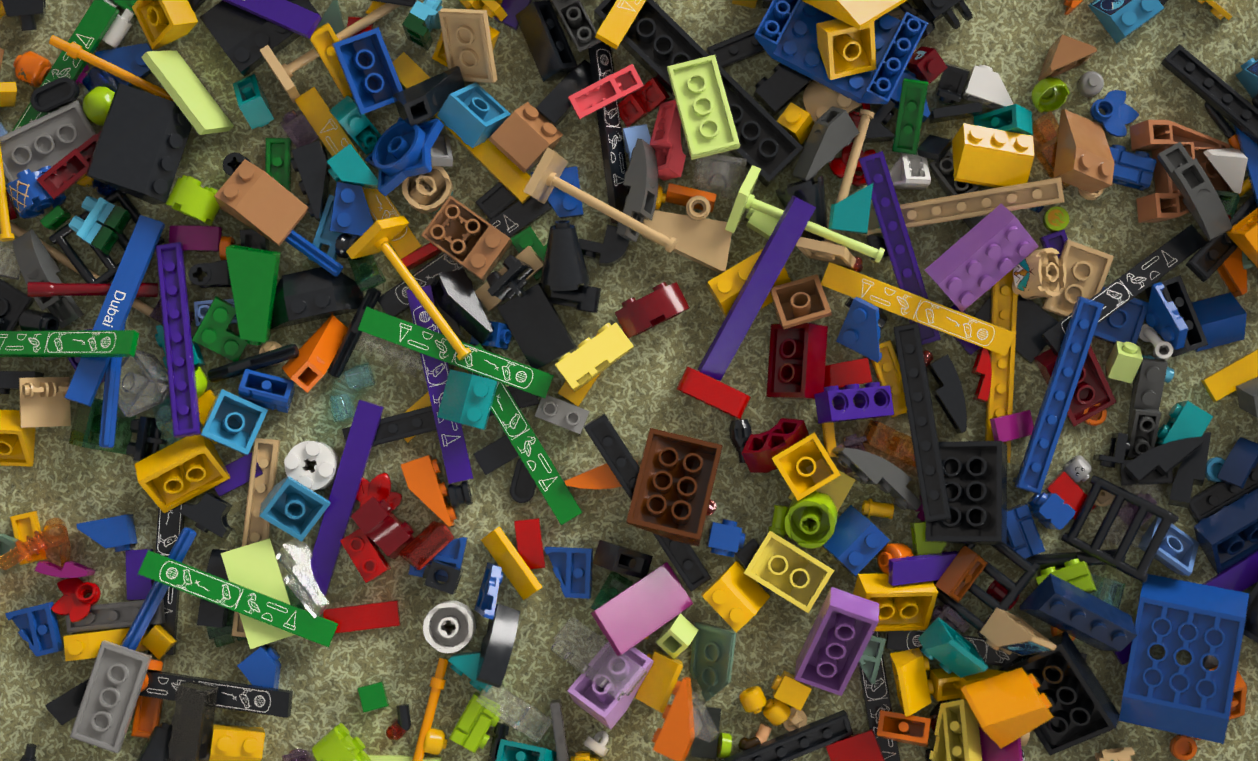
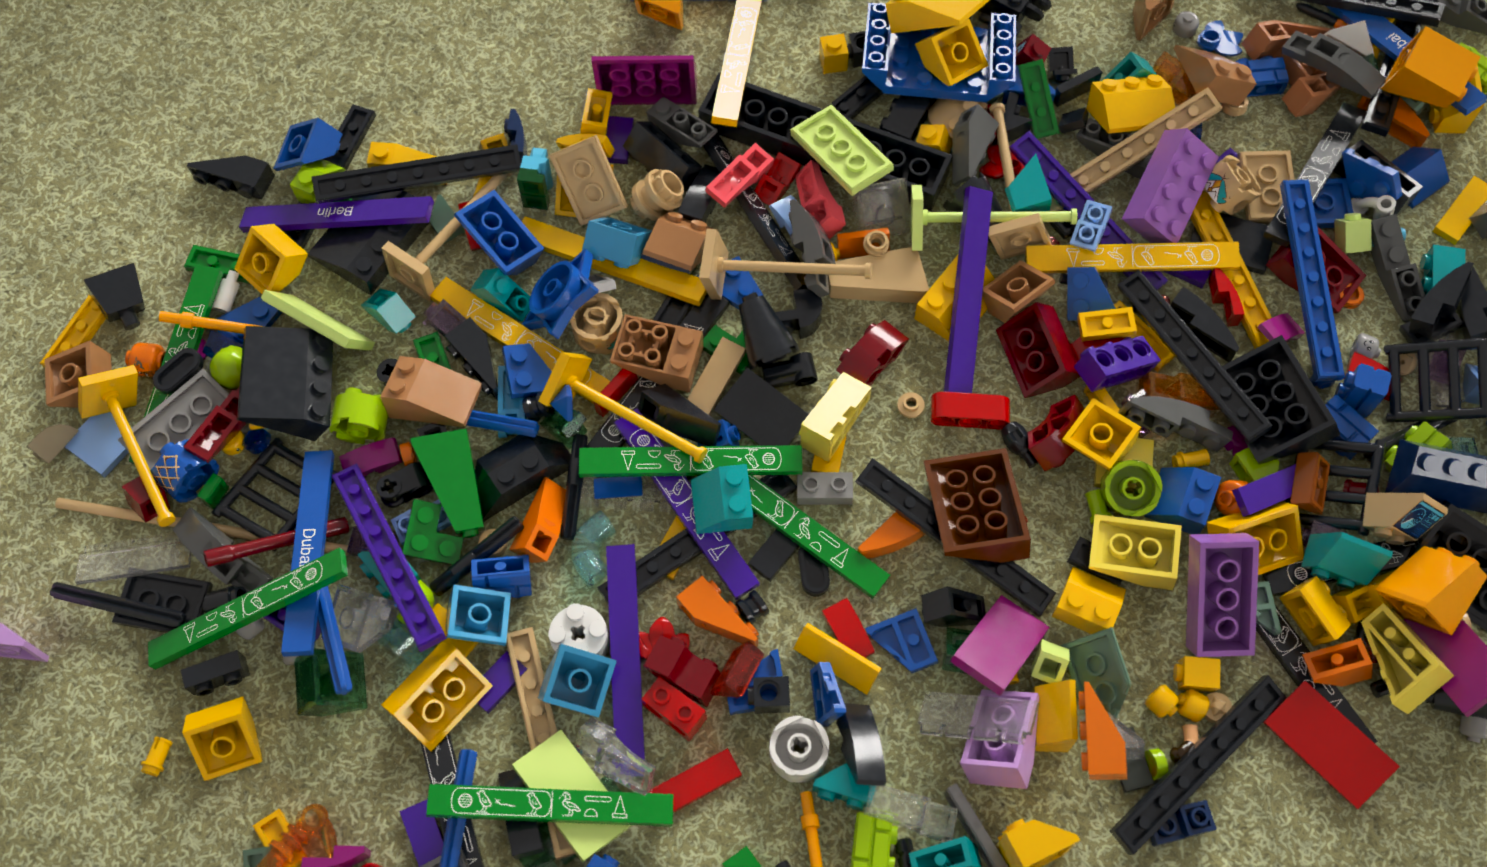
camera: 20 degrees left, 20 degrees down
(44, 402) = (258, 678): tan hinge -> none
(100, 213) = (266, 476): hips -> none
(111, 532) = (376, 795): blue slope -> none
(147, 440) = (386, 675): black hips -> none
(209, 514) = (482, 733): black brick -> none
(322, 41) = (459, 241): yellow tile -> none
(351, 169) = (513, 329): teal slope -> none
(367, 260) = (564, 403): none -> blue slope
(389, 348) = (617, 487): none -> blue sticker
(427, 97) = (564, 238): black slope -> none
(512, 281) = (719, 373): black hips -> none
(525, 82) = (657, 194): none -> tan piece
(595, 746) = (1014, 814): white tile -> none
(658, 367) = (910, 412): none -> tan plate
(725, 538) = (1051, 545): blue brick -> none
(761, 223) = (943, 239): yellowish green brick -> none
(862, 365) = (1107, 324): none -> yellow plate
(893, 267) = (1091, 225): none -> light blue slope
(910, 172) = (1066, 148): white slope -> none
(987, 88) = (1093, 53): white slope -> none
(1049, 94) = (1154, 41): lime hair -> none
(1056, 219) = (1218, 141): lime tile -> none
(1118, 449) = (1392, 316): black bracket -> none

